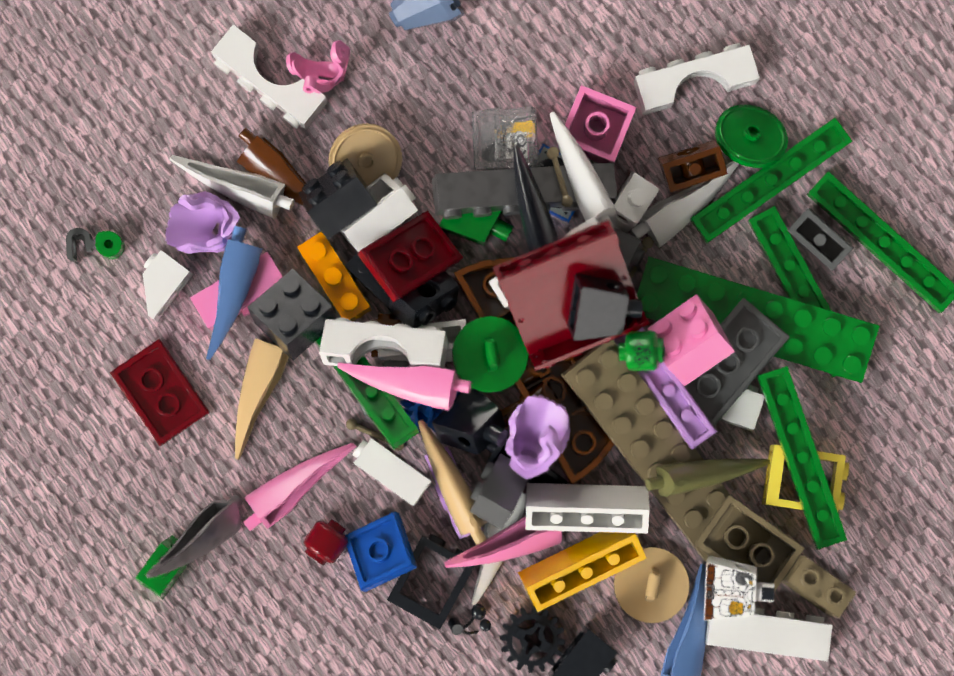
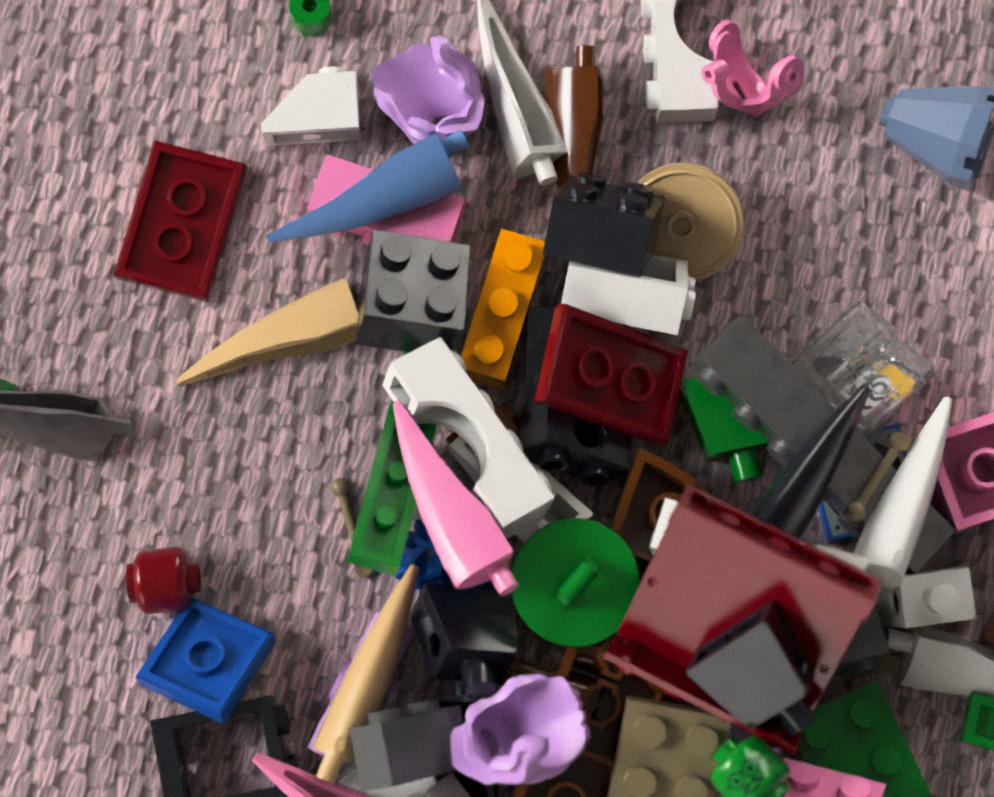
camera: 50 degrees right, 5 degrees down
(283, 492) = (184, 476): bright pink piece -> none
(391, 471) = (319, 585): white window -> none

